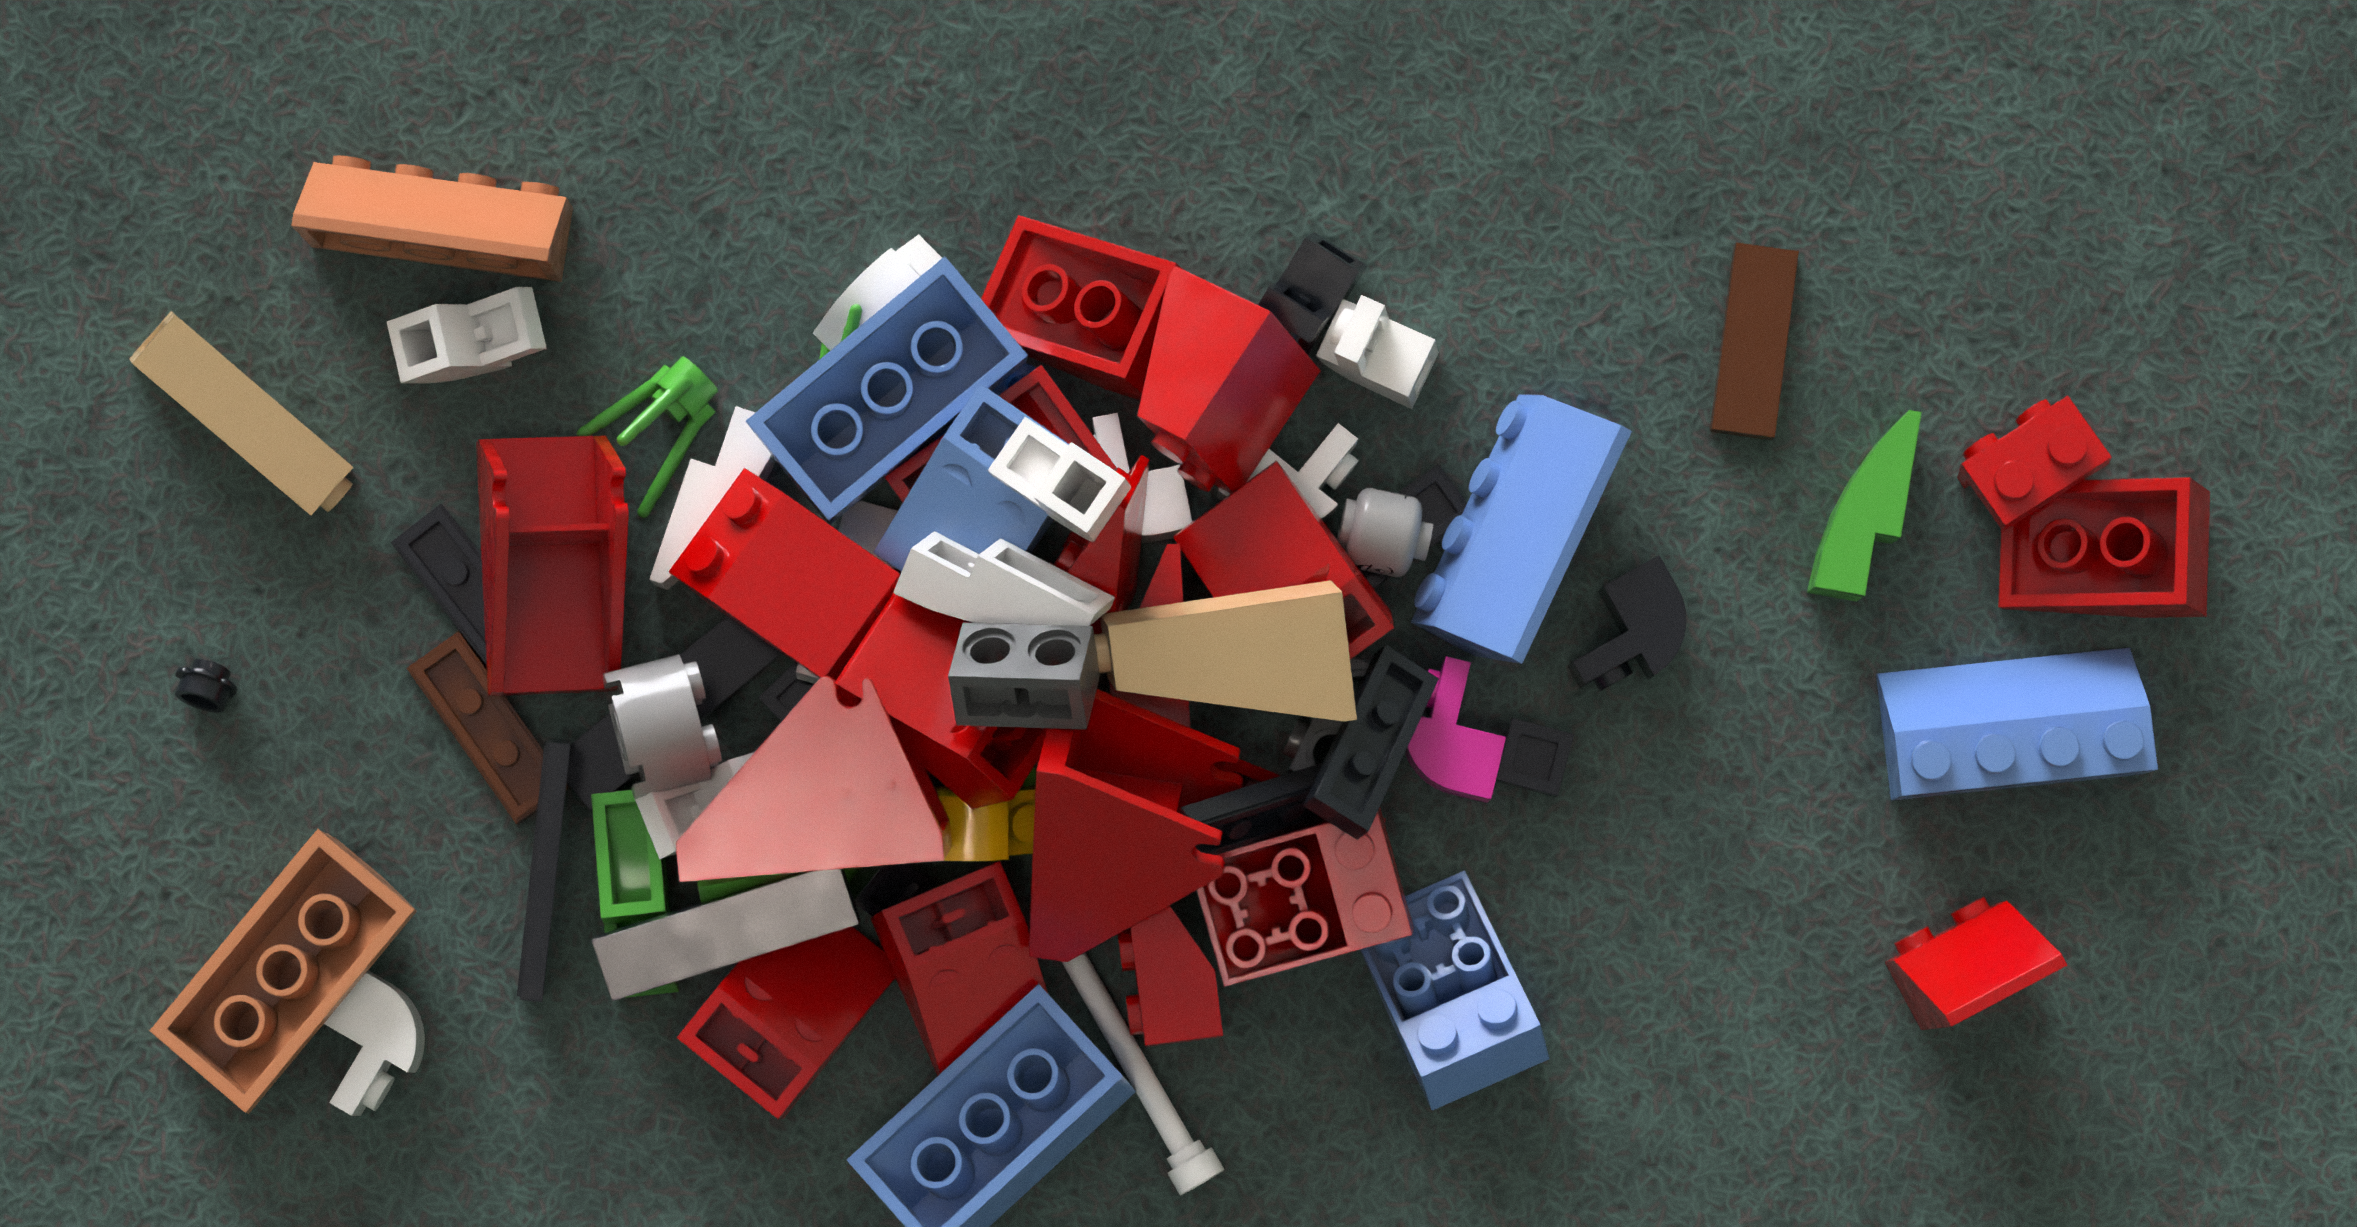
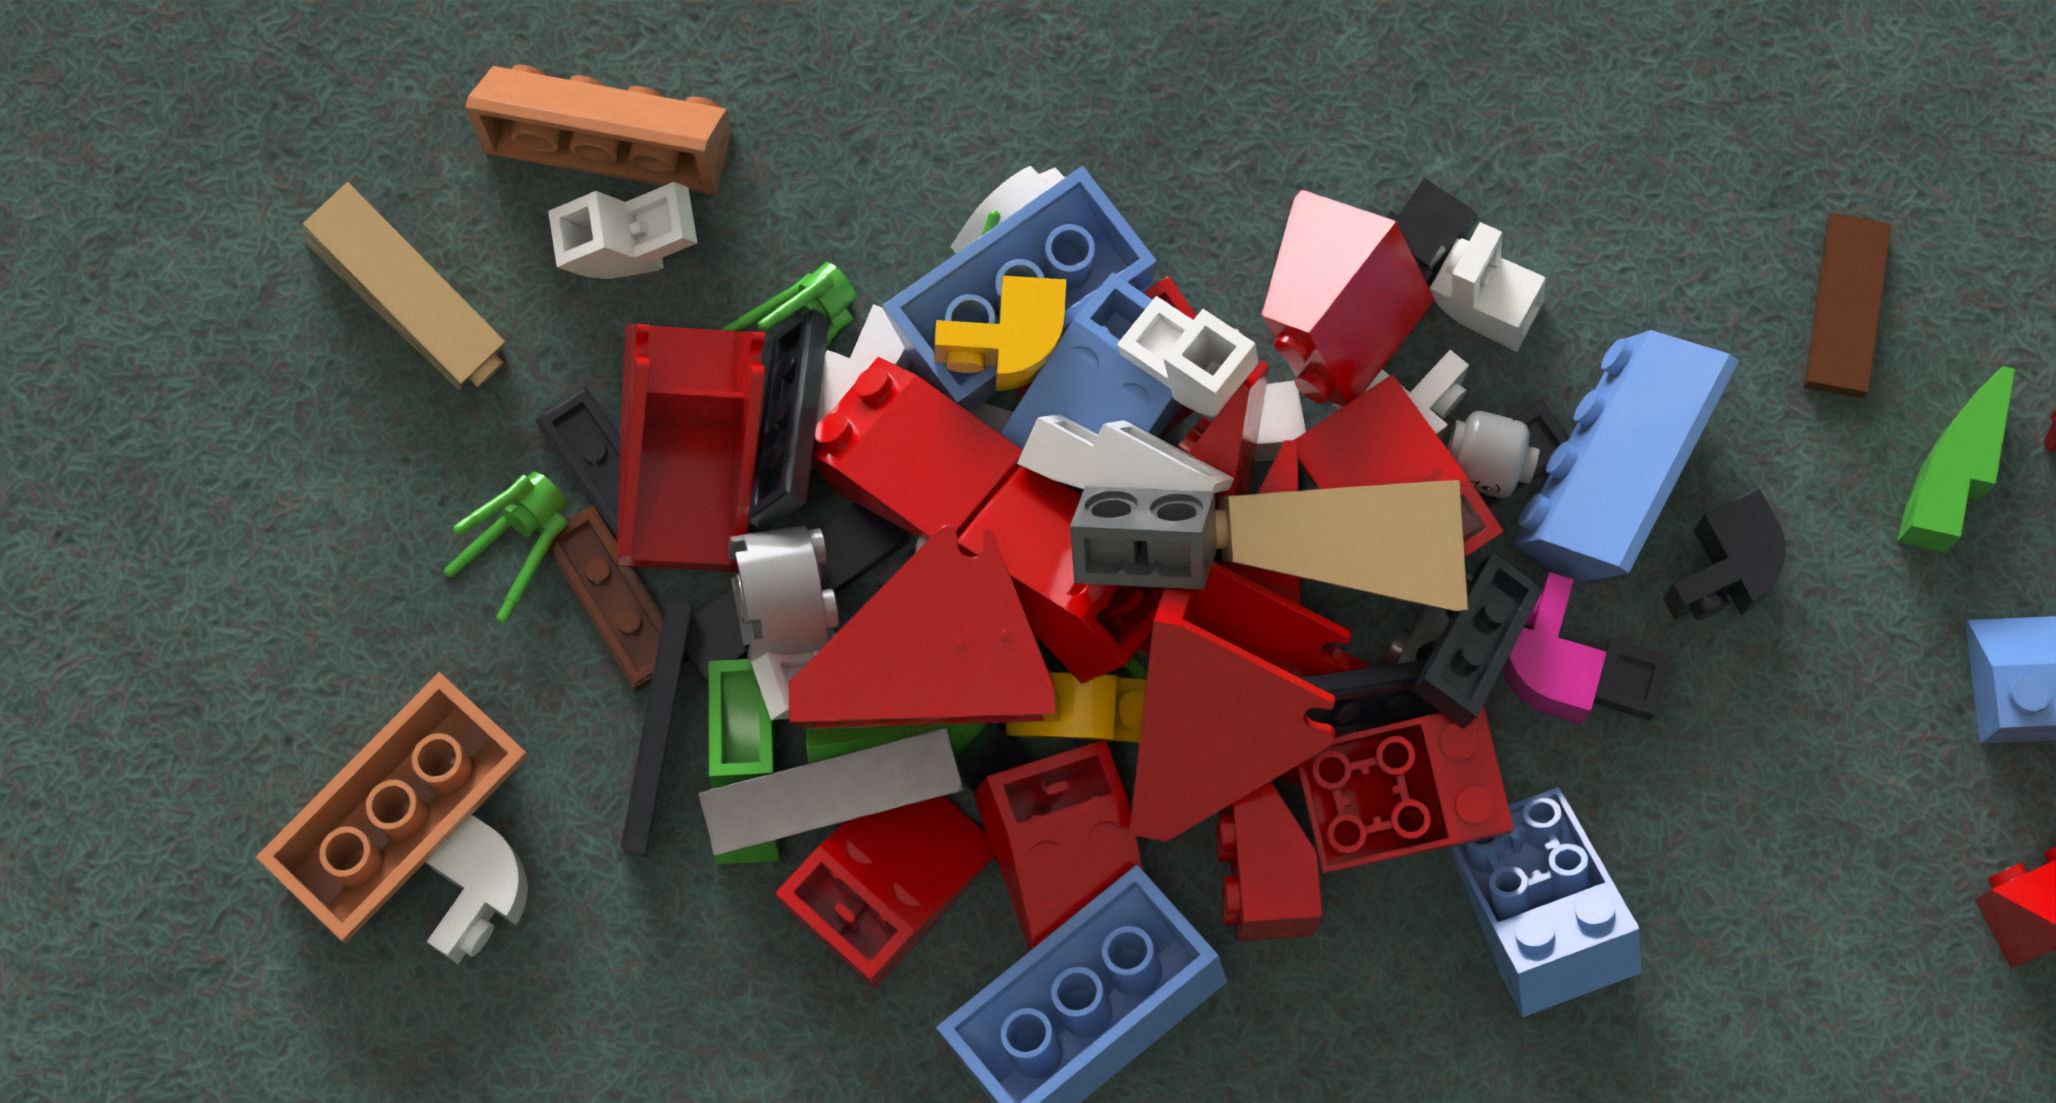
camera: 10 degrees right, 10 degrees down
(205, 686) = (345, 542): black plate -> none
(392, 640) = (531, 506): none -> bright green plant
(656, 540) = (789, 420): none -> black tile
(894, 456) = (1021, 342): none -> yellow brick
(1079, 303) = (1211, 234): red slope -> none
(1188, 1159) = (1278, 1054): white piece -> none

